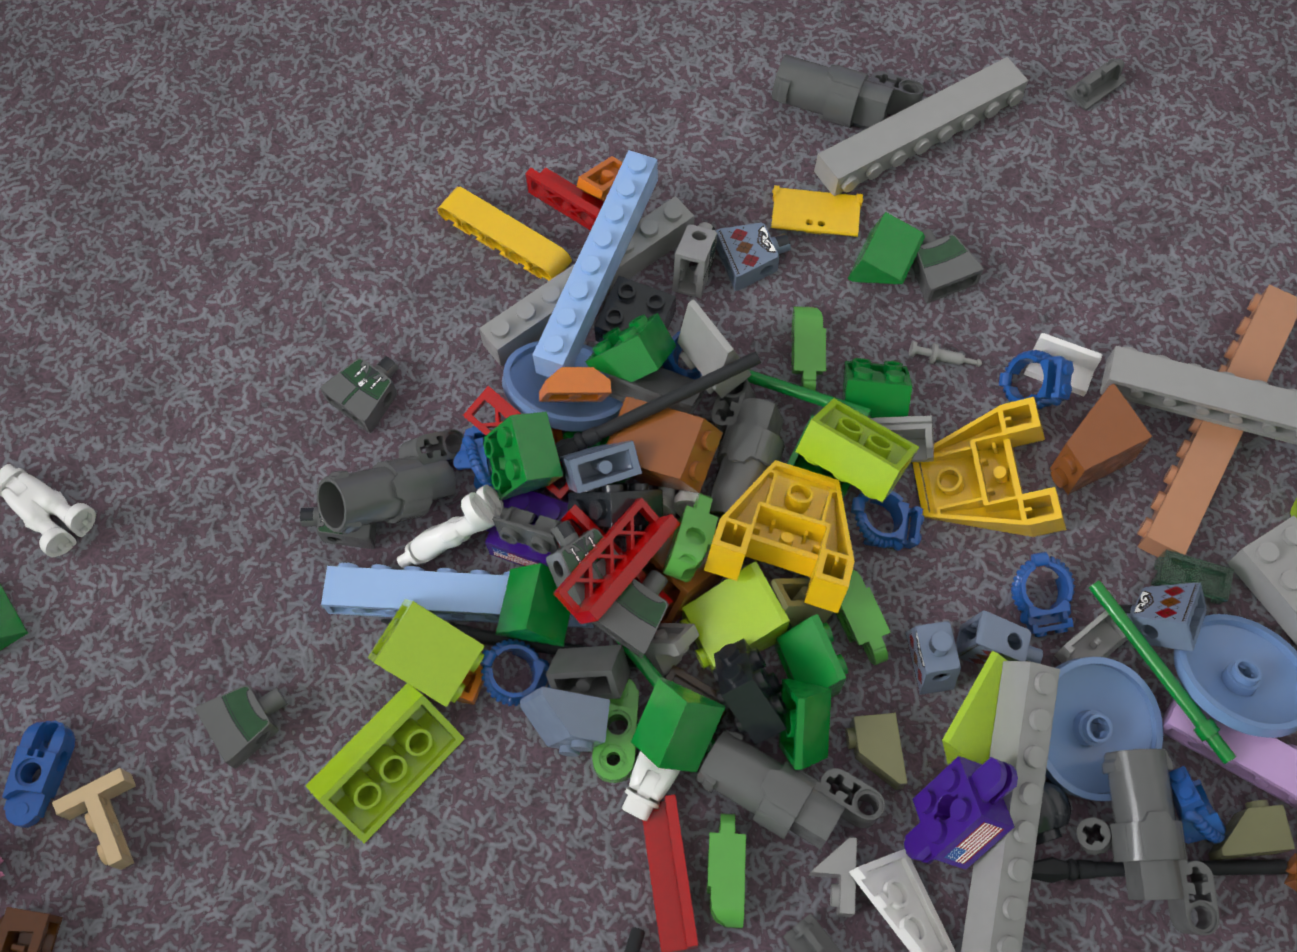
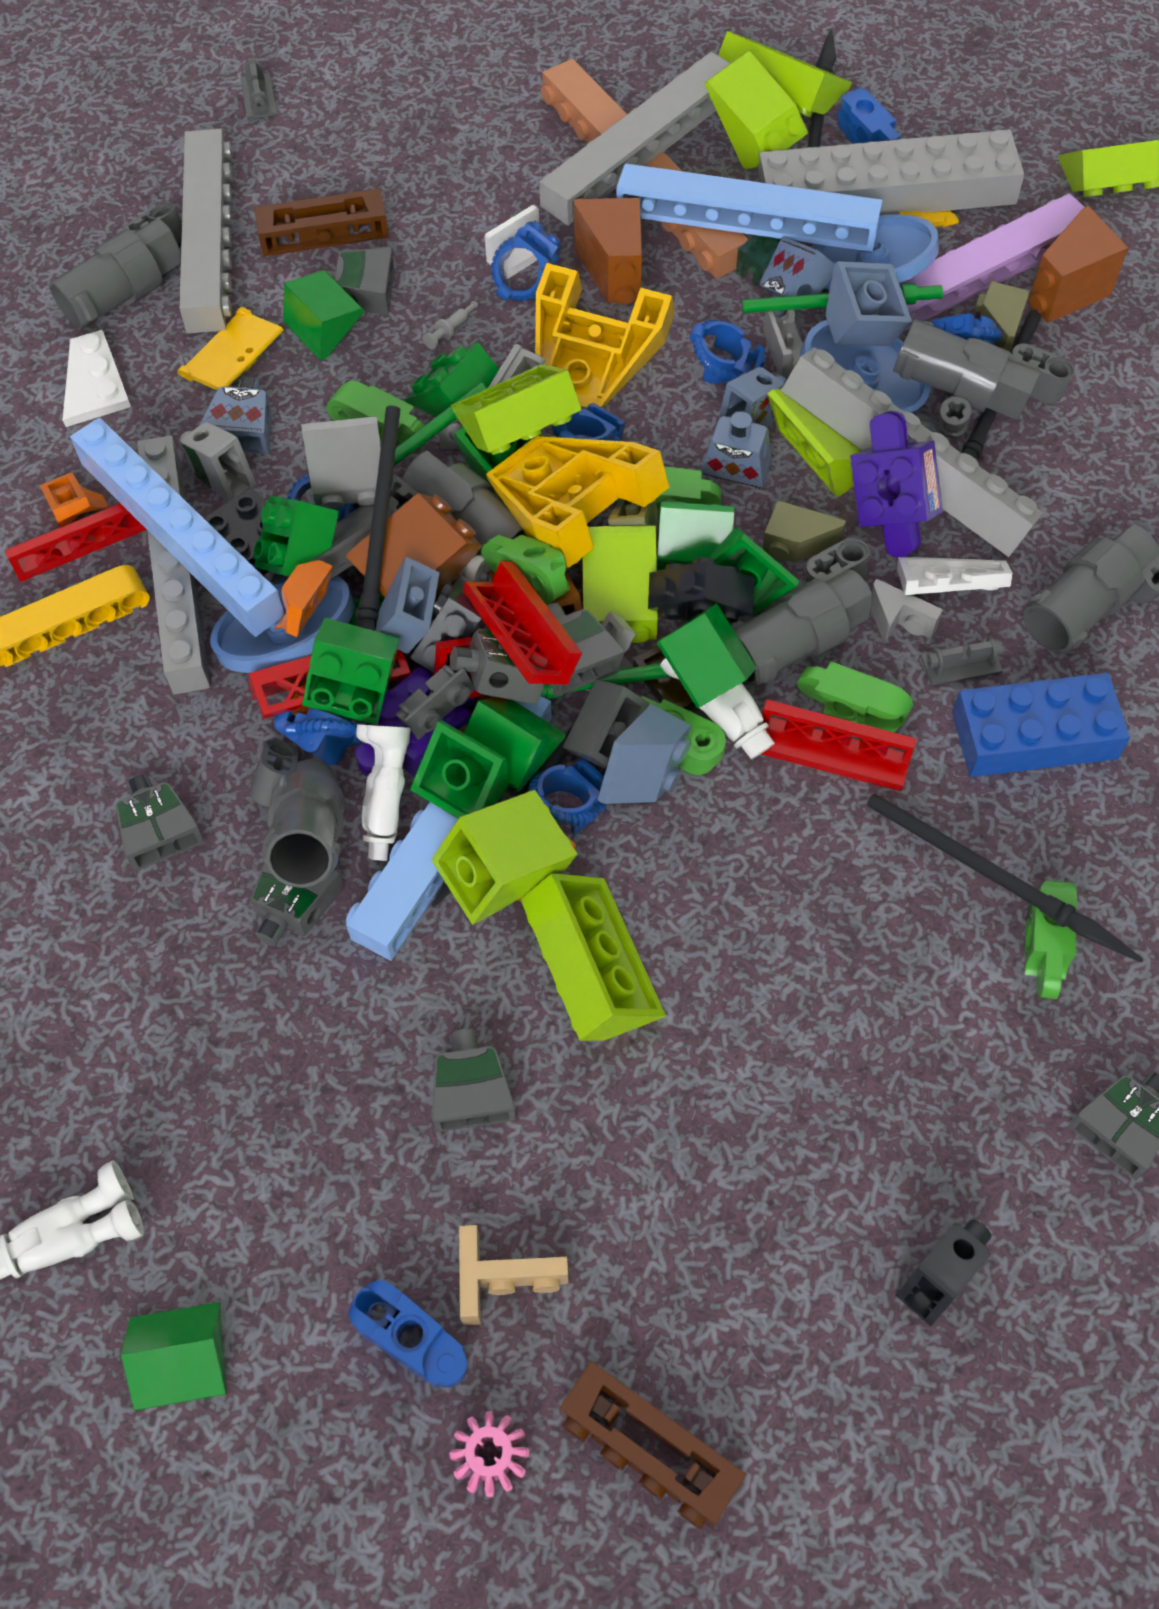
camera: 65 degrees left, 5 degrees down
(479, 584) = (460, 773): none -> green slope
(732, 135) = (92, 380): none -> white wing
(985, 204) = (321, 221): none -> reddish brown brick
(1156, 694) = (866, 304): none -> sand blue slope
(1216, 542) = (752, 207): none -> light blue brick

